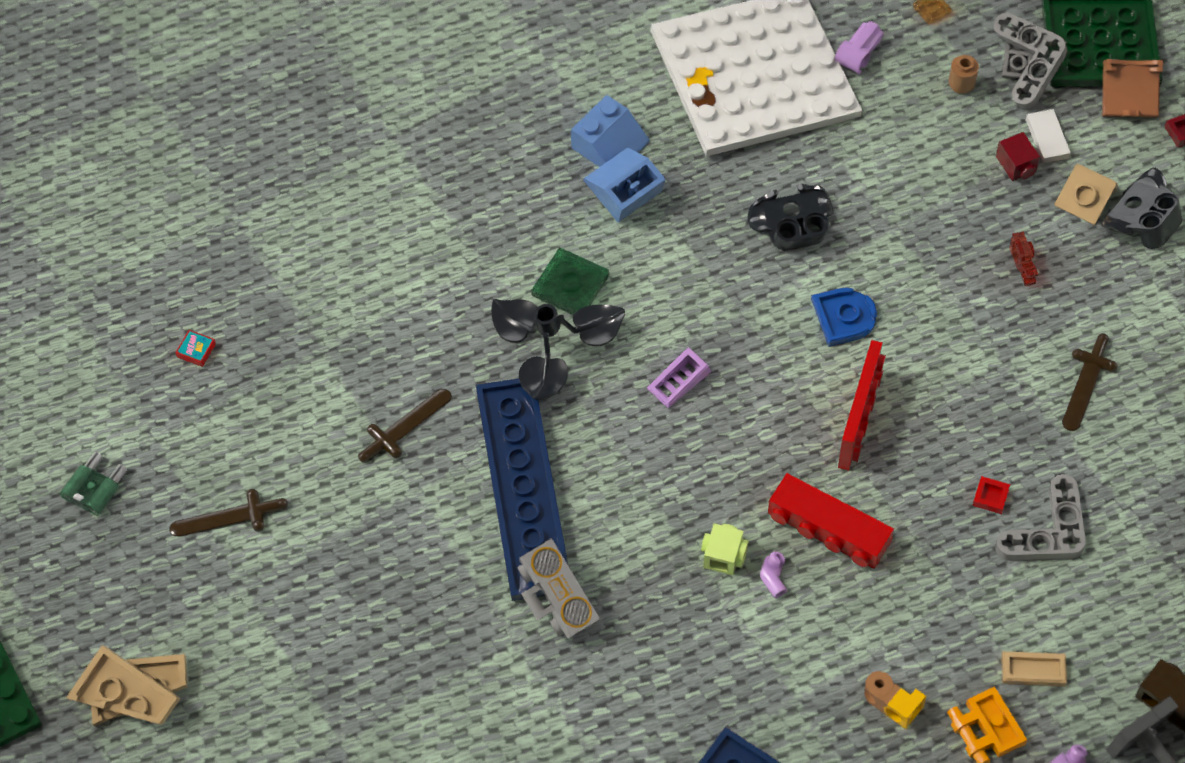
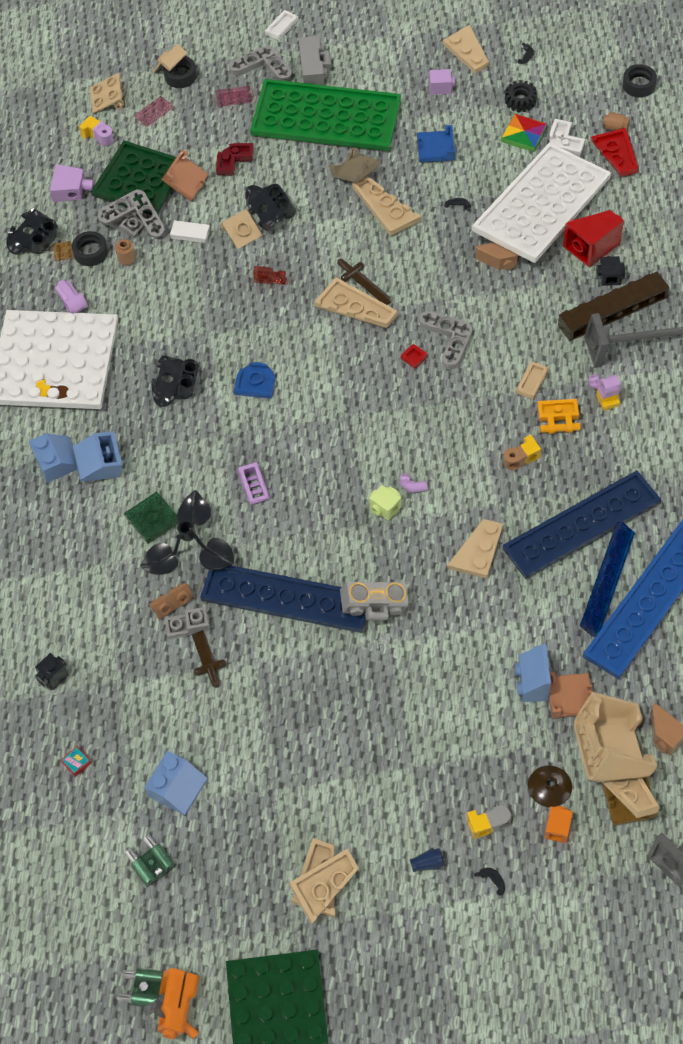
camera: 65 degrees left, 0 degrees up
(203, 466) = (175, 783): none -> medium blue slope
(253, 510) = (220, 768): dark brown sword -> none
(299, 266) = (51, 671): none -> black brick
(433, 386) = (187, 624): none -> light grey slope
(453, 353) = (176, 598): none -> medium nougat hinge
(708, 701) = (478, 551): none -> tan wing
(830, 521) = (393, 440): red brick -> none
(862, 406) = (328, 391): red plate -> none
(950, 17) = (89, 259): none -> black tyre
(1018, 156) = (198, 250): dark red brick -> none
(1037, 380) = (351, 302): none -> tan wing

